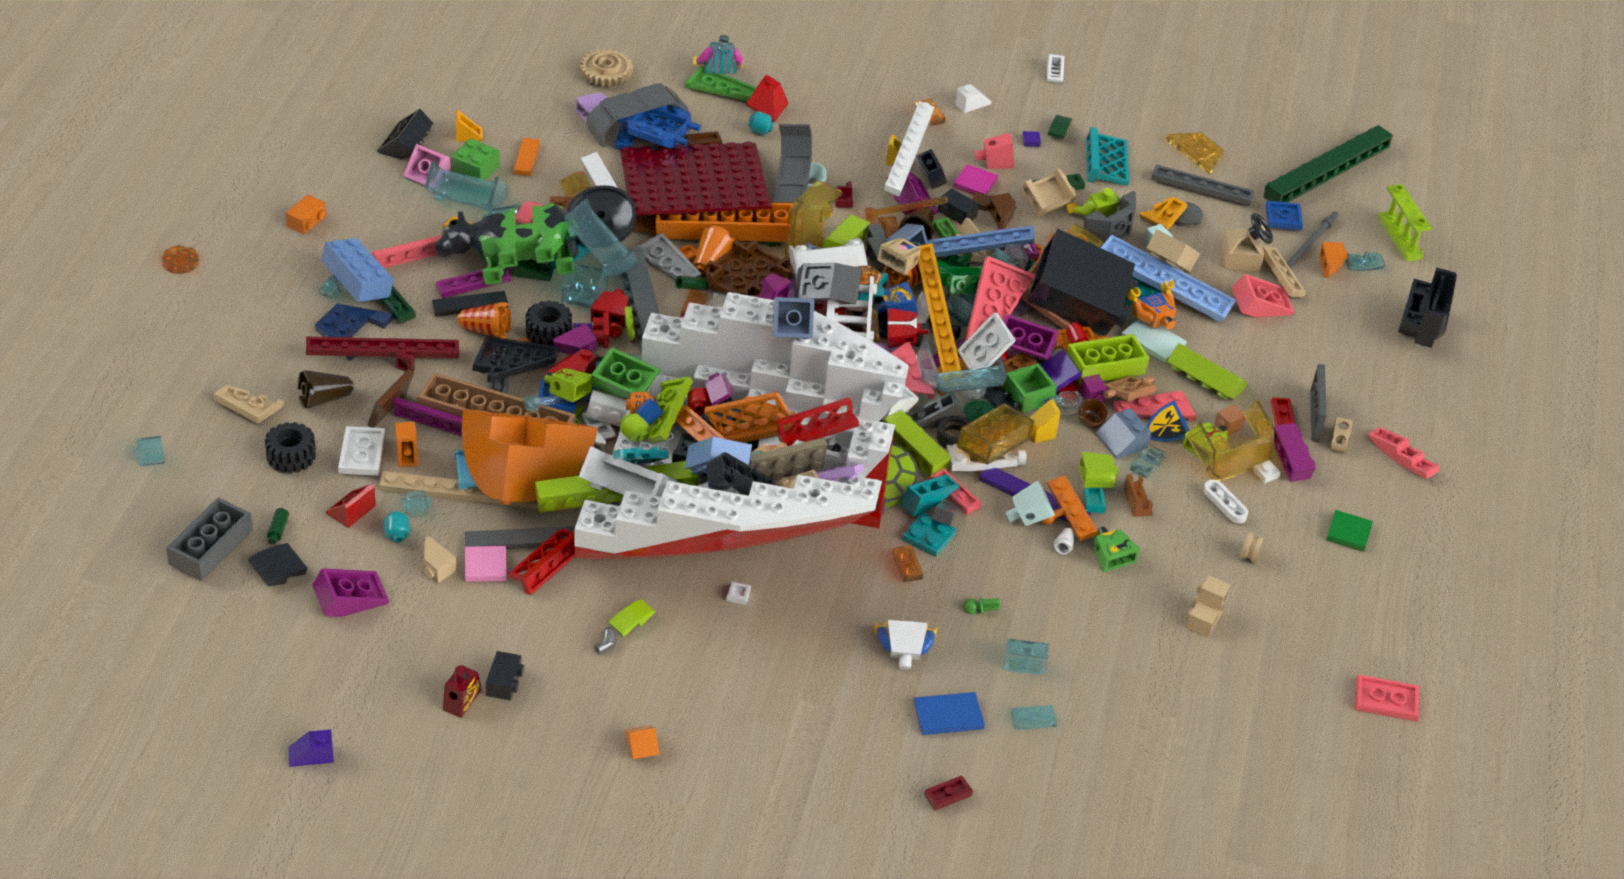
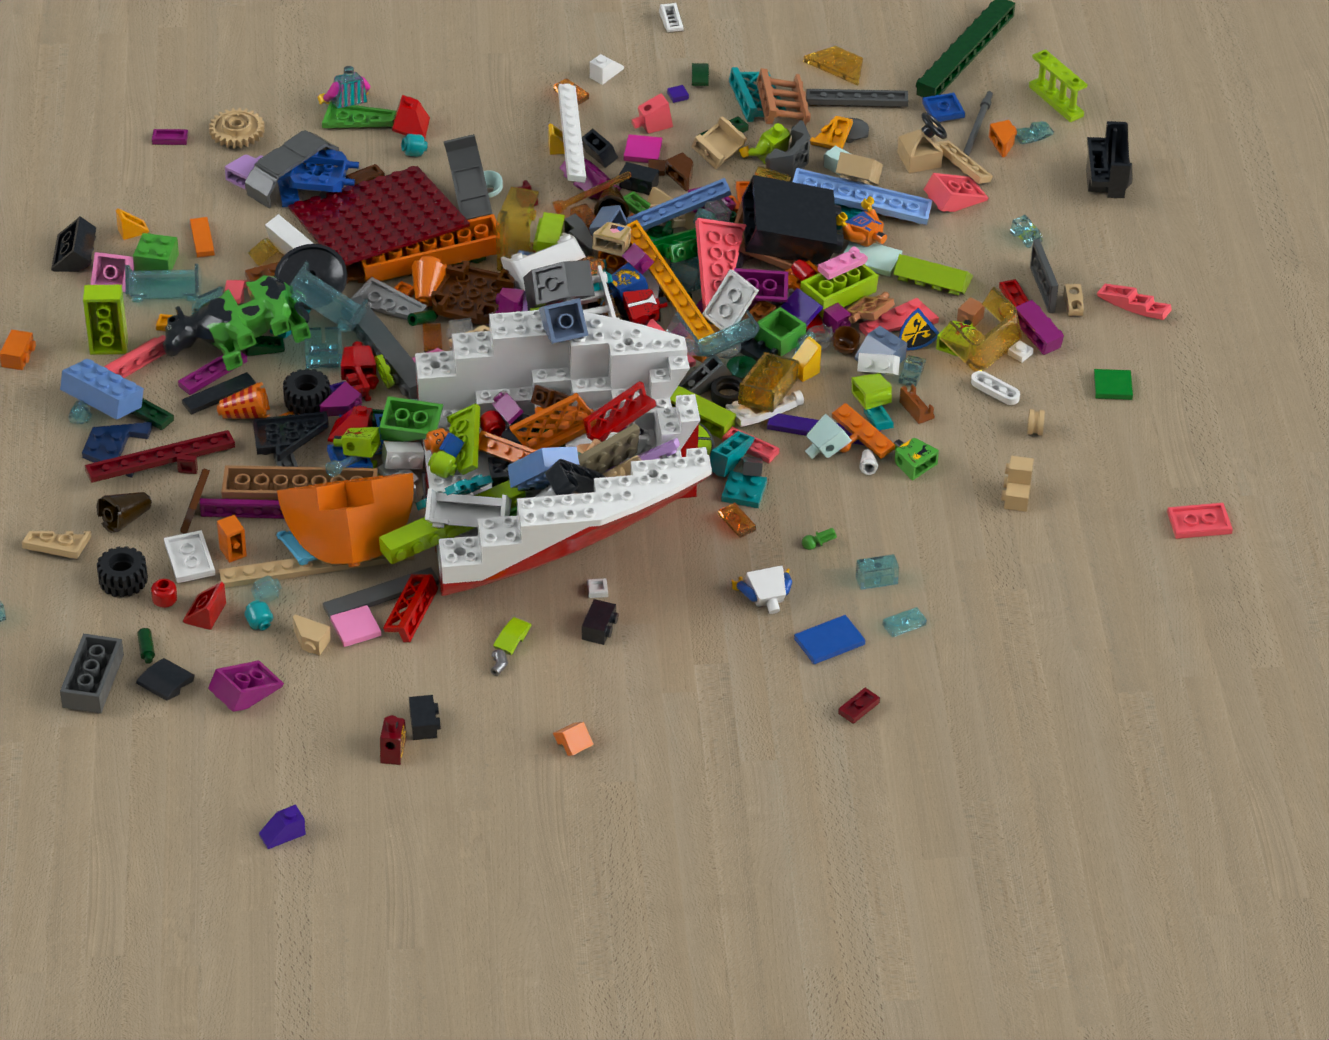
camera: 15 degrees left, 0 degrees up
(318, 479) = (164, 593): none -> red head
(391, 206) = (105, 319): none -> lime brick
(543, 60) = (170, 137): none -> magenta tile
(723, 628) = (599, 622): none -> black brick
(757, 386) = (546, 397): none -> reddish brown slope
(916, 280) = (638, 258): none -> magenta brick
(1113, 167) = (769, 102): none -> nougat fence
(1114, 445) = (878, 364): none -> white brick
(1117, 337) = (842, 263): none -> bright pink plate
(1318, 354) = (1026, 231): none -> clear light blue leg

